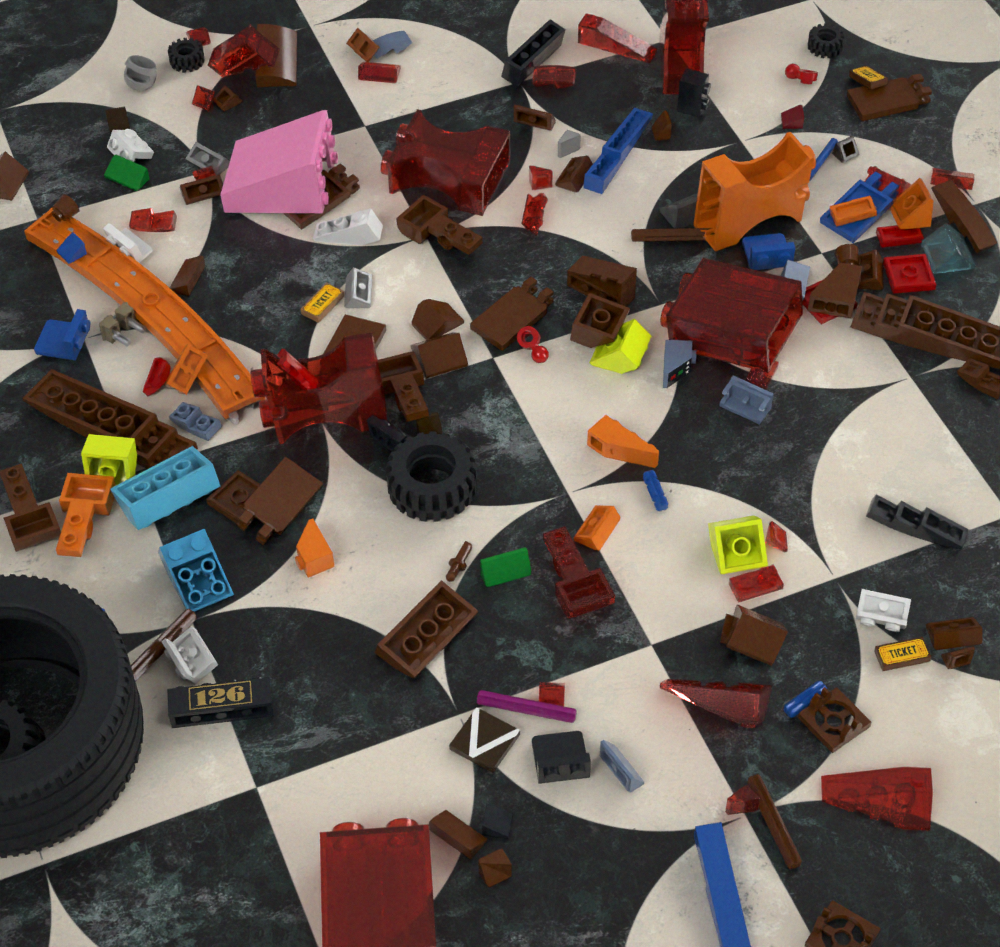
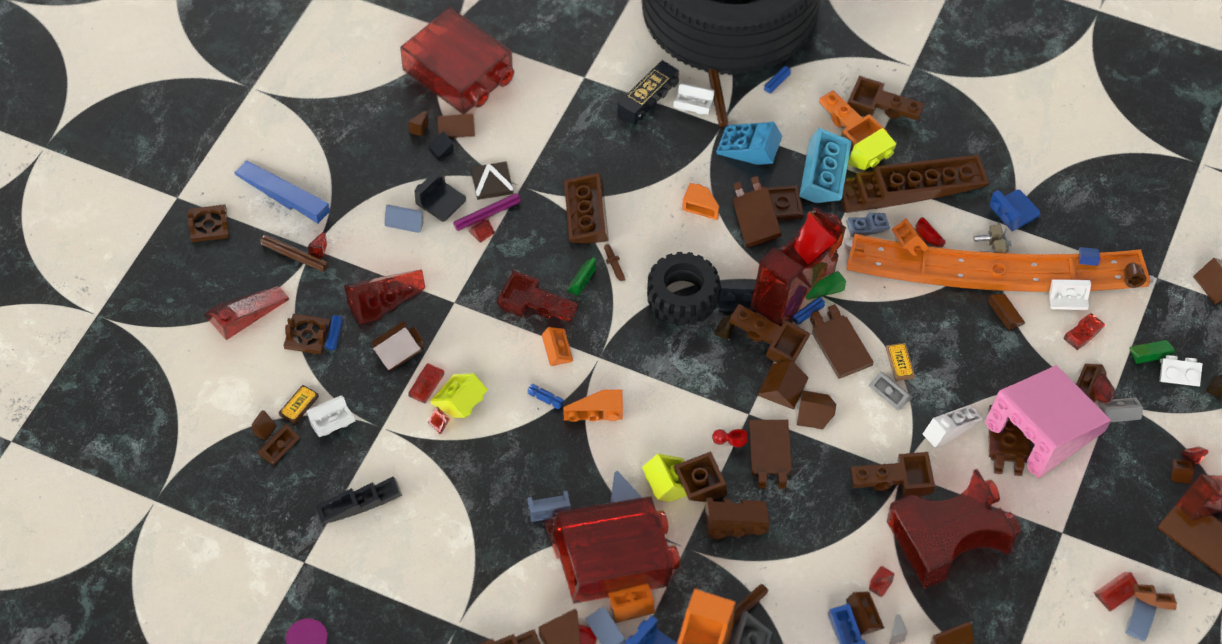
camera: 135 degrees right, 5 degrees up
(534, 212) = (848, 543): clear red hinge -> none

